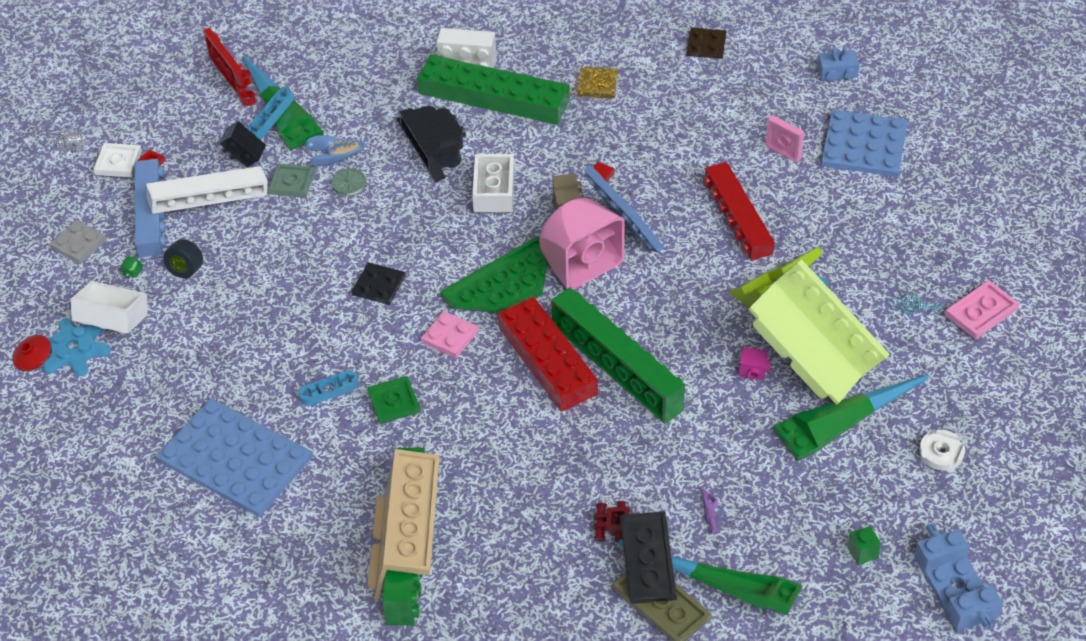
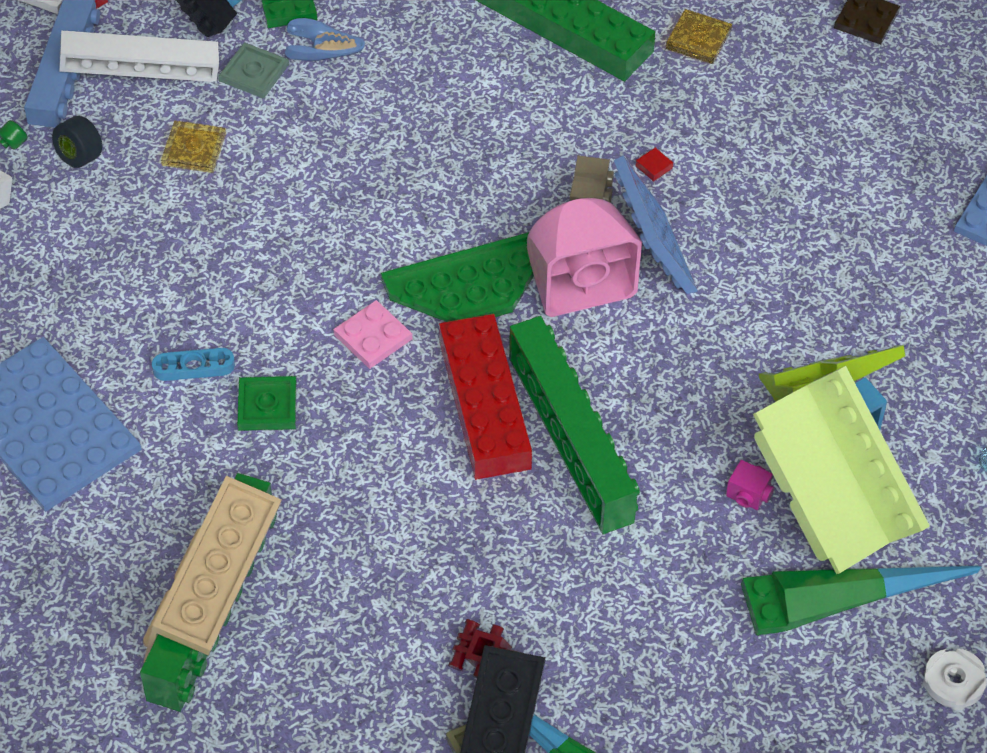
camera: 15 degrees right, 5 degrees up
(268, 242) = (193, 146): none -> clear yellow plate
(348, 182) = (324, 91): sand green wheel -> none
(378, 283) = (309, 240): black plate -> none
(434, 137) = (455, 59): black brick -> none
(493, 183) = (505, 142): white brick -> none
(709, 507) = (614, 666): medium lavender hand -> none
(738, 211) = (814, 267): red brick -> none
(784, 138) = (914, 181): bright pink plate -> none

